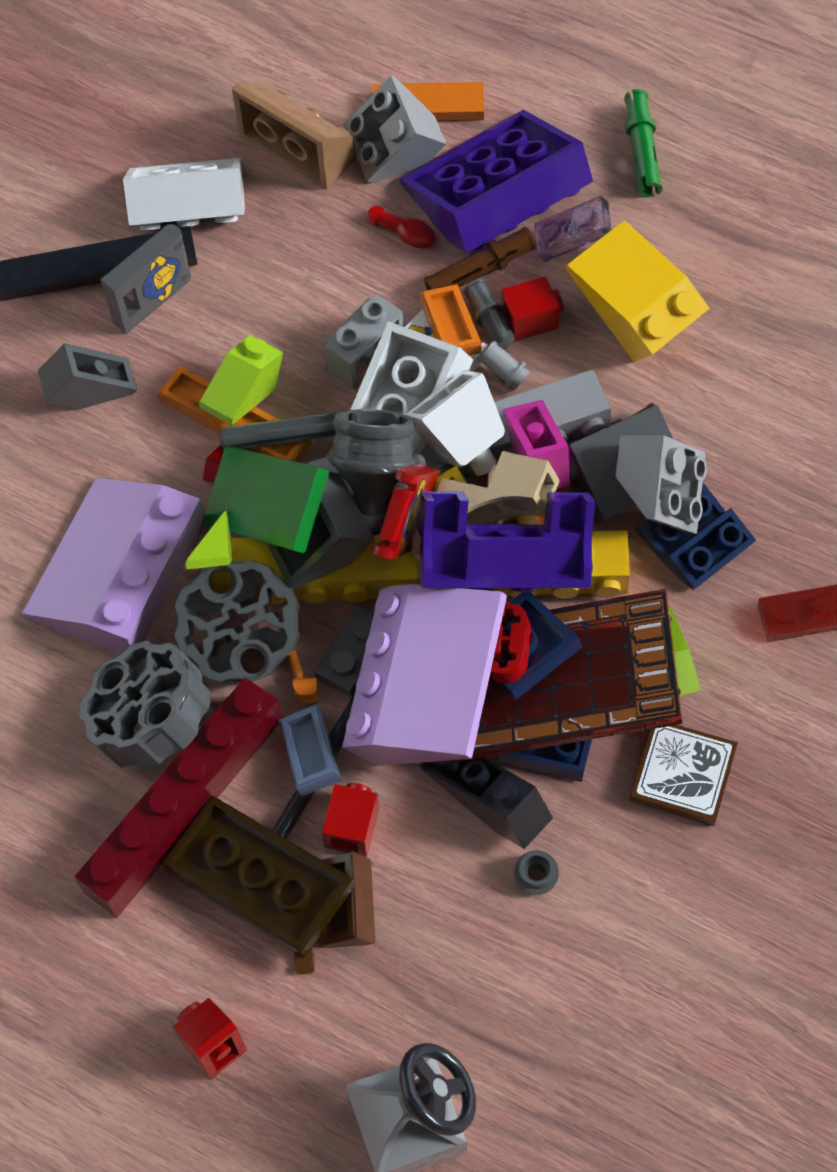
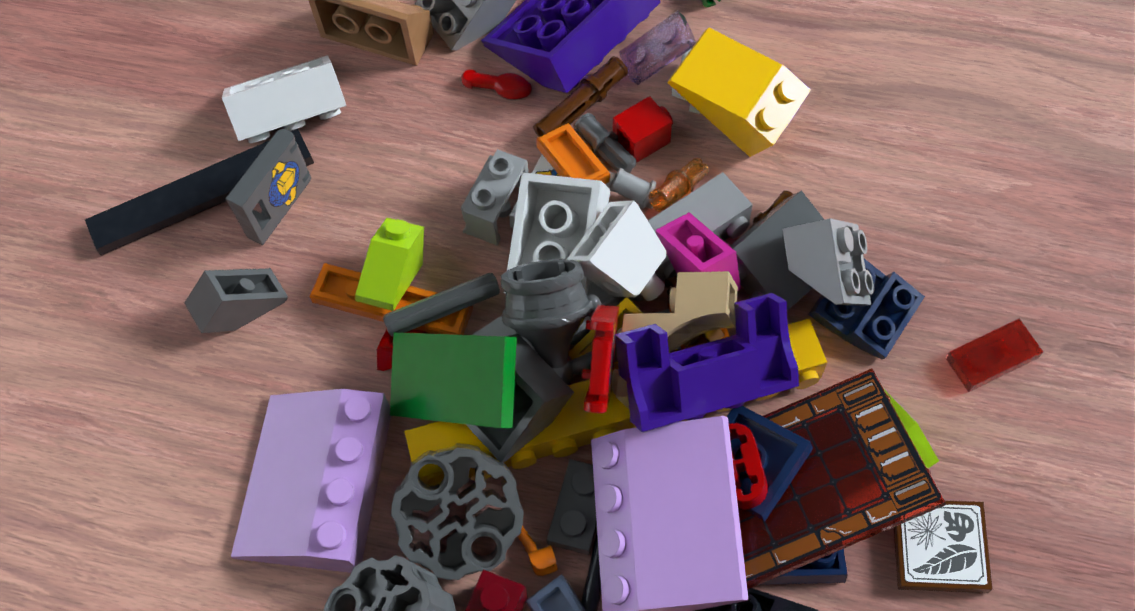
camera: 15 degrees left, 0 degrees up
(214, 548) = (414, 445): lime slope -> none
(548, 370) = (678, 184): none -> clear orange axle

